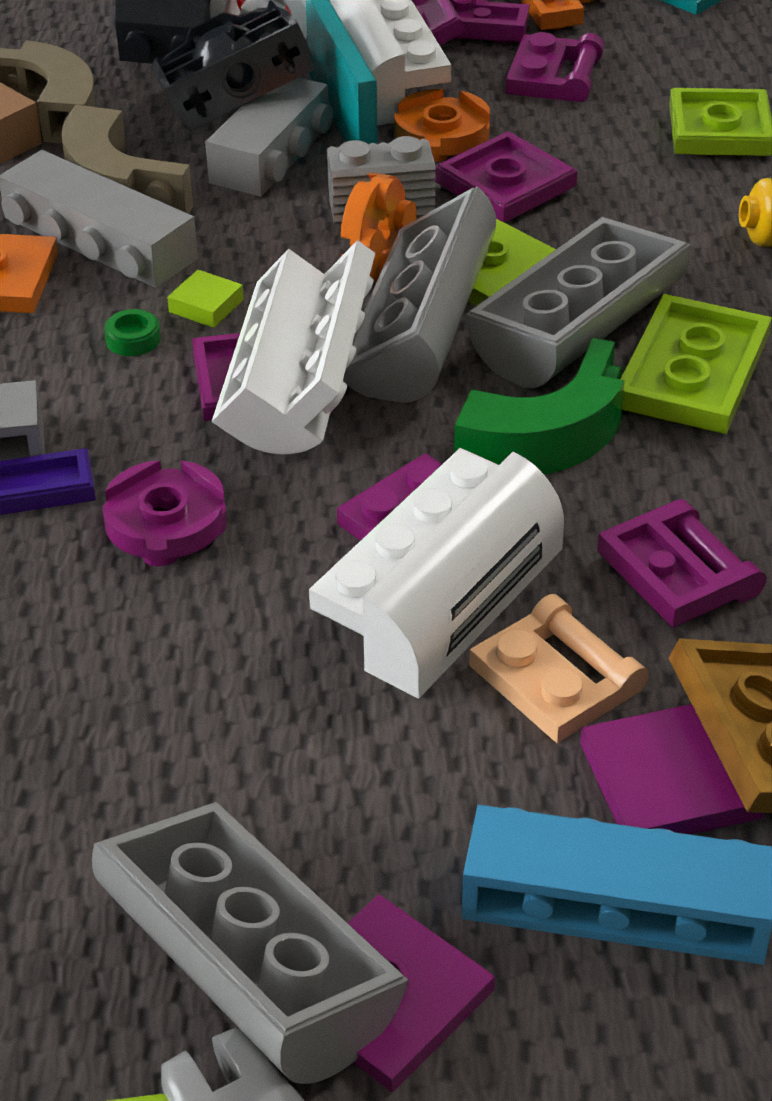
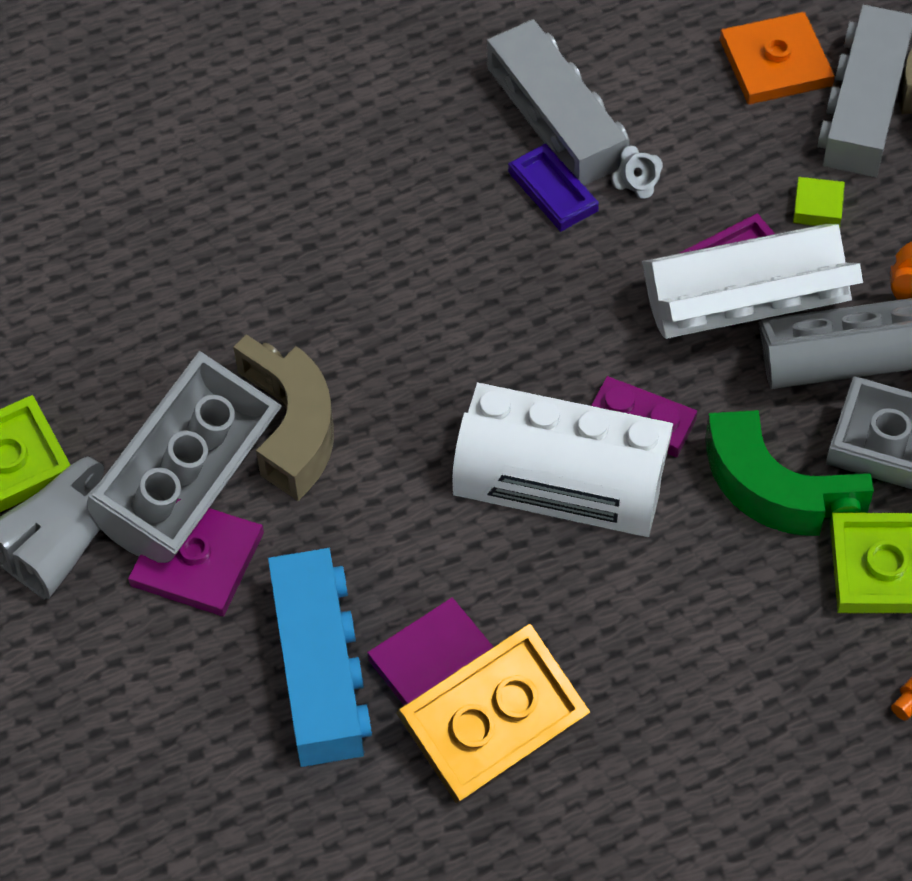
camera: 70 degrees right, 15 degrees up
(72, 402) = (650, 172): none -> light grey plate
(132, 332) = (751, 174): green tile -> none
(169, 534) = (549, 296): magenta plate -> none
(257, 786) = (304, 440): none -> dark tan arch
(544, 681) = (497, 560): light nougat plate -> none
(668, 572) = (641, 607): magenta plate -> none

